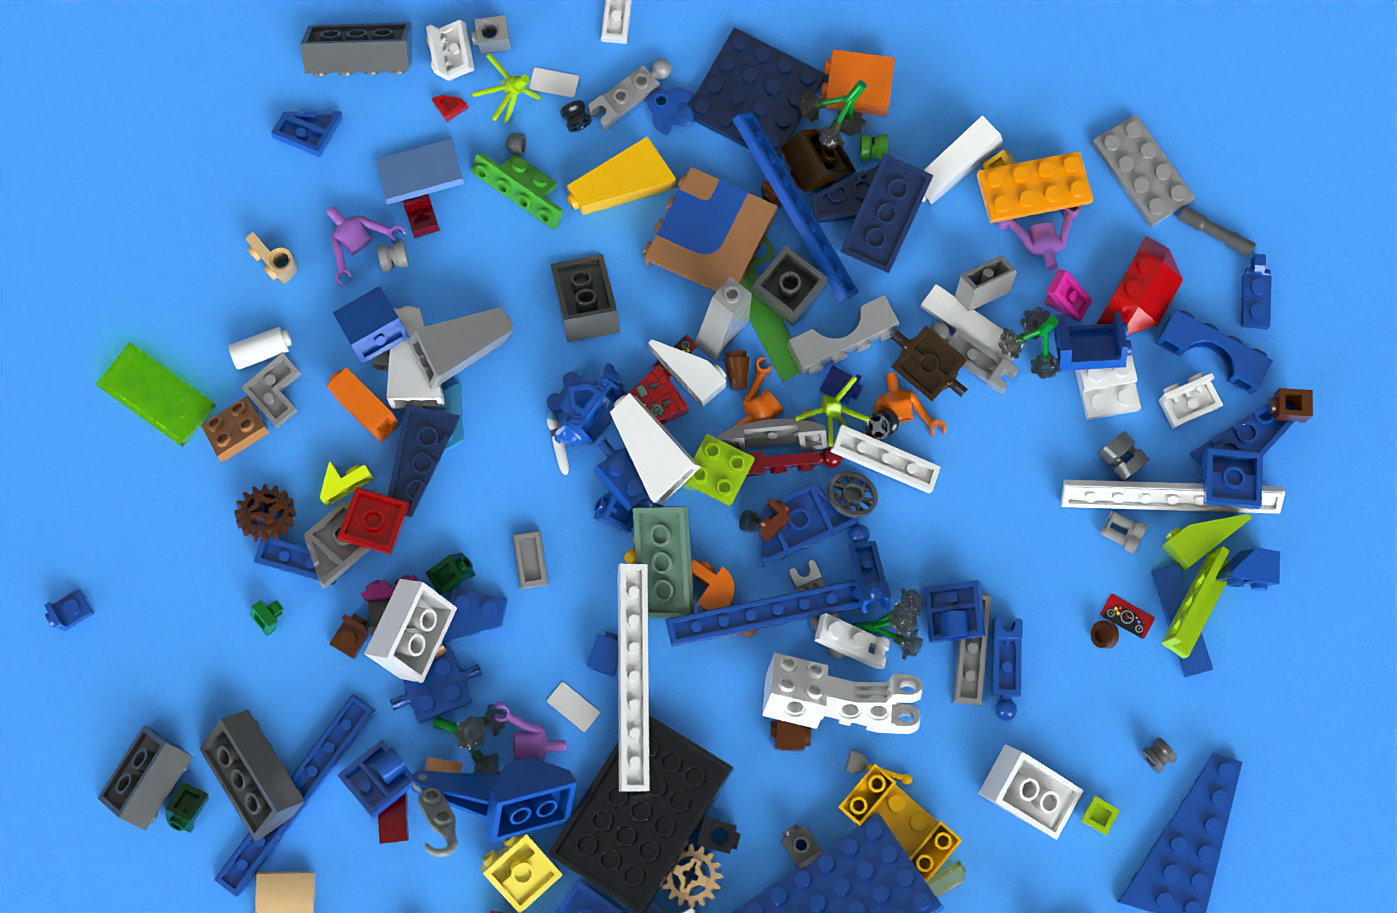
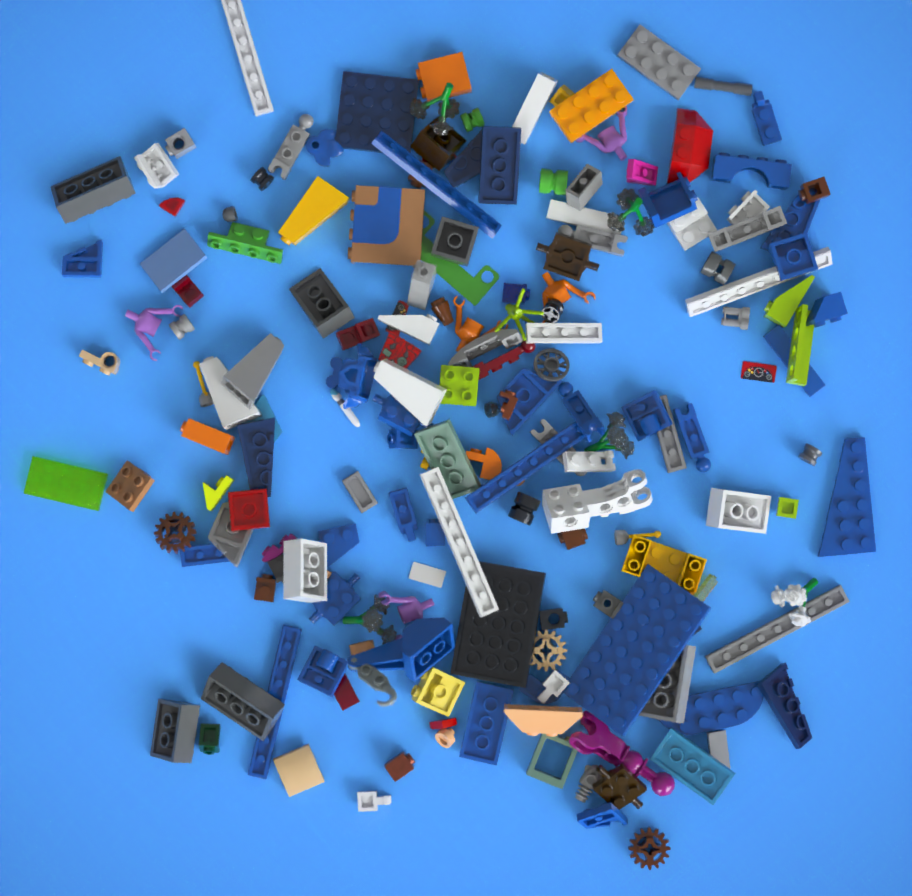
camera: 25 degrees left, 10 degrees up
(68, 611) = (76, 646): blue bracket -> none
(260, 347) = (121, 424): white brick -> none
(266, 616) = (205, 598): green tile -> none
(267, 387) = (138, 451): light grey plate -> none
(371, 325) = (189, 381): blue panel -> none
(450, 572) = (312, 522): dark green bracket -> none
(511, 85) = (212, 179): lime plant -> none
(554, 82) = (236, 159): white sticker -> none
(577, 610) = (404, 512): none -> blue hinge
(621, 354) = (357, 334): none -> dark red slope
(739, 669) = (524, 508): none -> black wheel
(813, 350) = (487, 278): light grey arch -> none
(947, 262) = (553, 181): none -> bright green wheel
(1104, 634) = (748, 390): reddish brown tile -> none
(1183, 420) = (747, 229): none -> light grey slope

